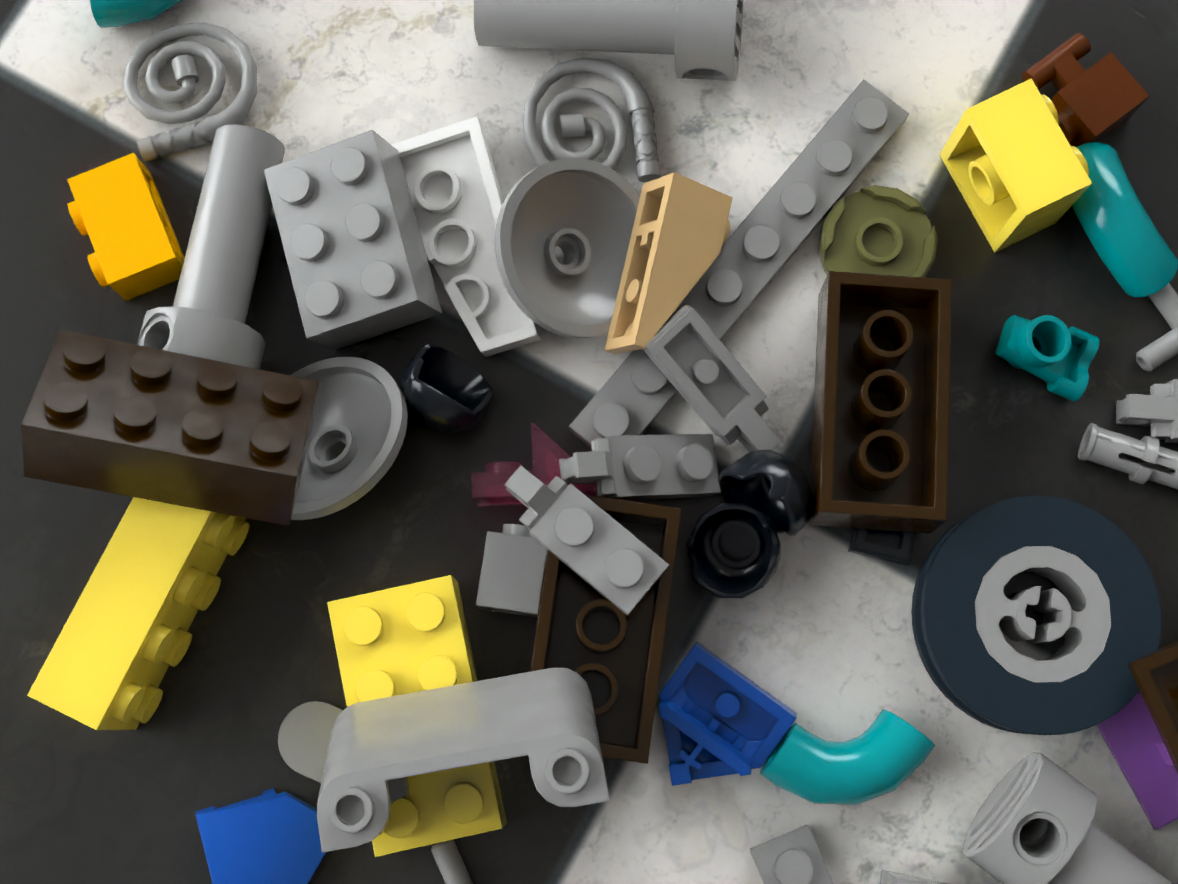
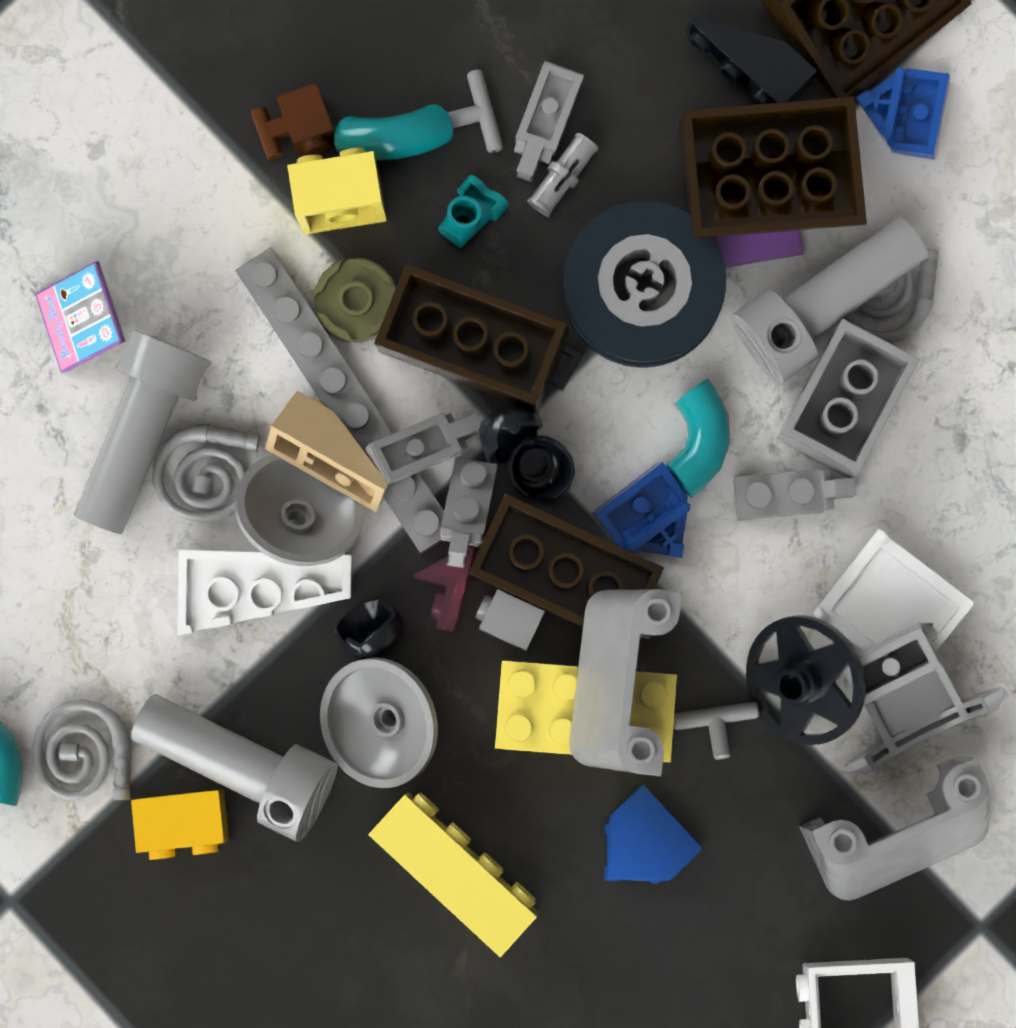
camera: 70 degrees left, 5 degrees up
(169, 428) = (353, 811): dark brown brick -> none
(306, 737) = (579, 788): light grey piece -> none
(352, 241) = (244, 663): light grey brick -> none
(587, 539) = (508, 561): light grey hinge -> none

